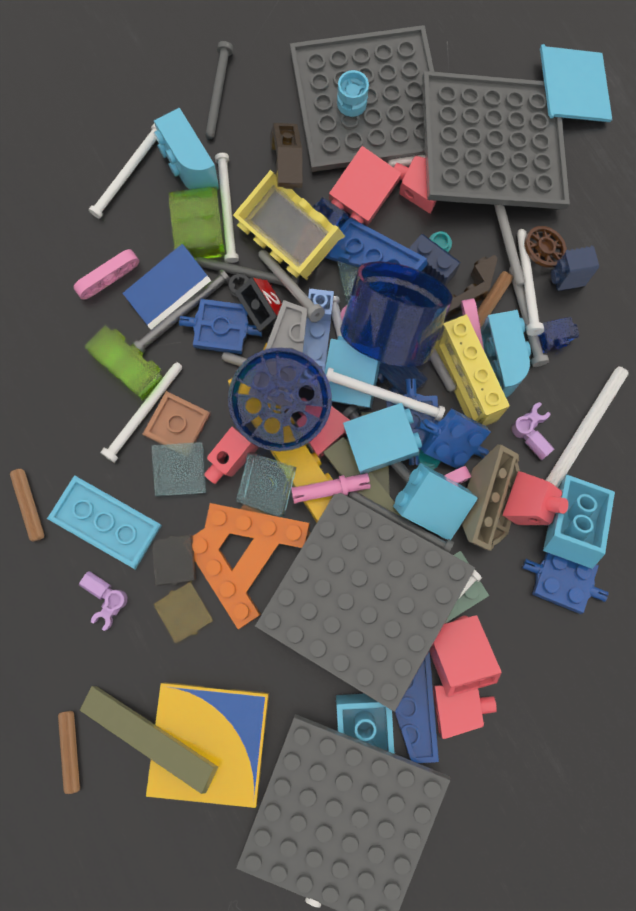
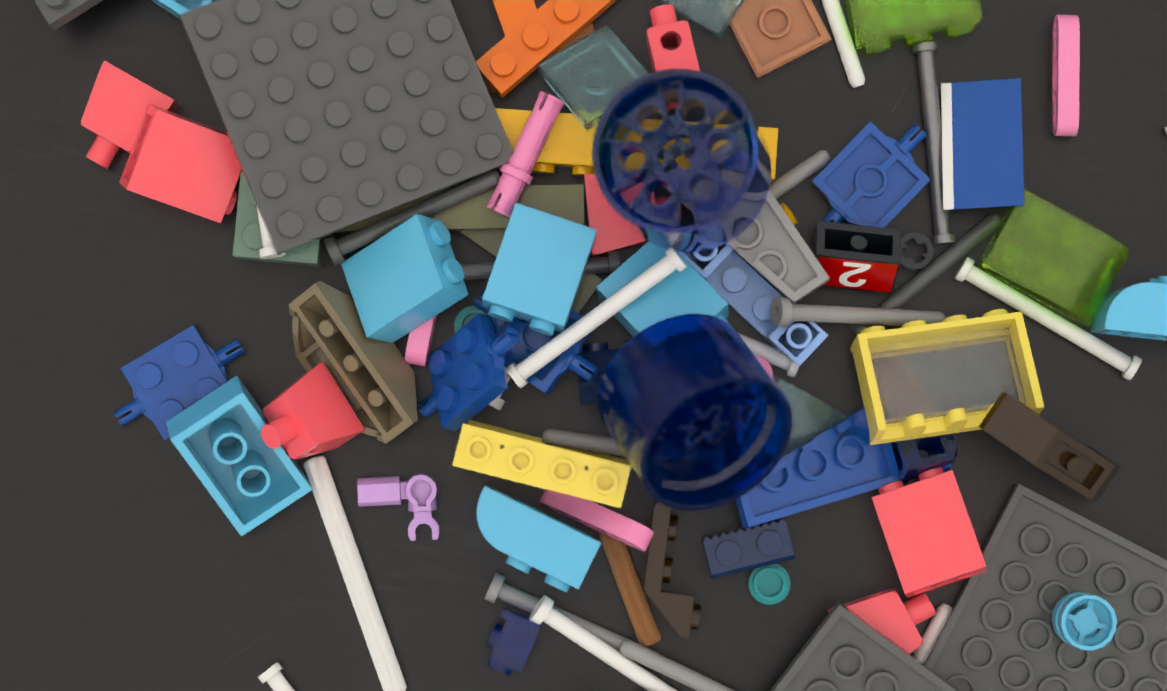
camera: 130 degrees right, 10 degrees up
(417, 717) = (155, 54): blue wing -> none

